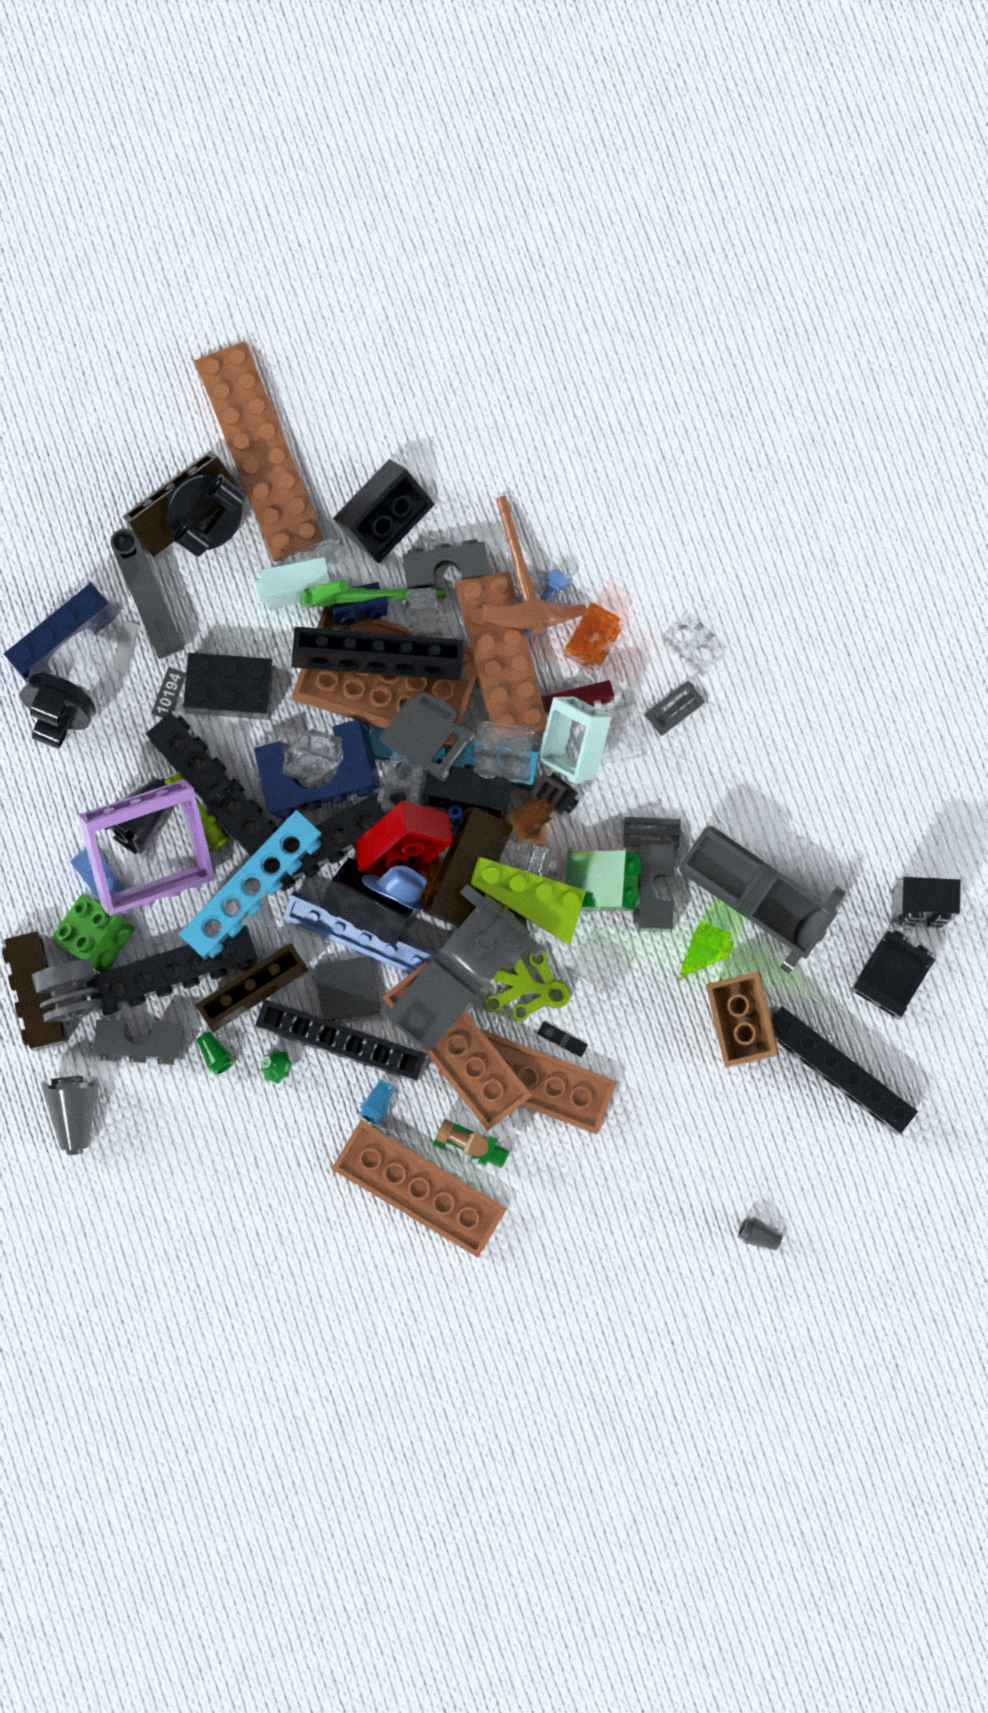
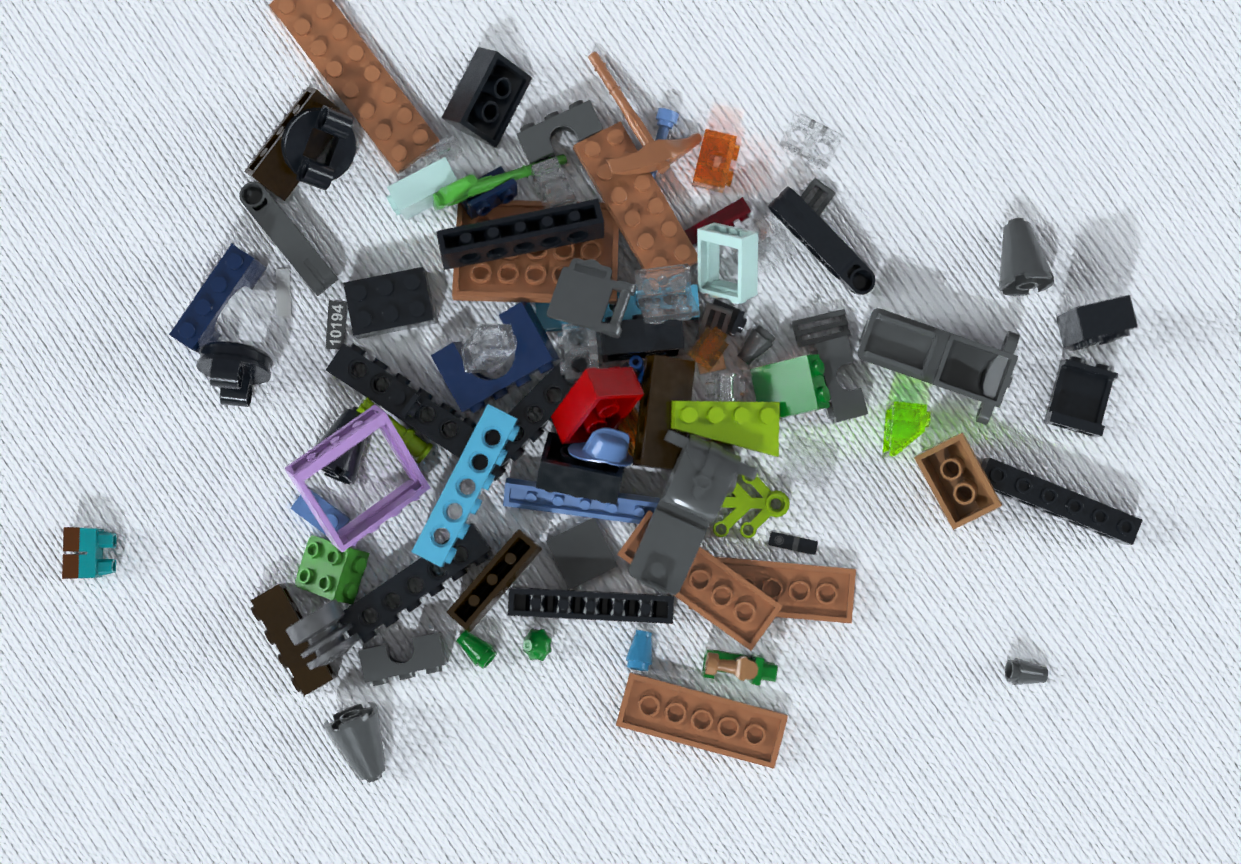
camera: 15 degrees left, 5 degrees up
(582, 829) = (756, 344): none -> dark grey cone
(676, 746) = (822, 241): none -> black piece
(871, 821) = (1022, 260): none -> dark grey cone

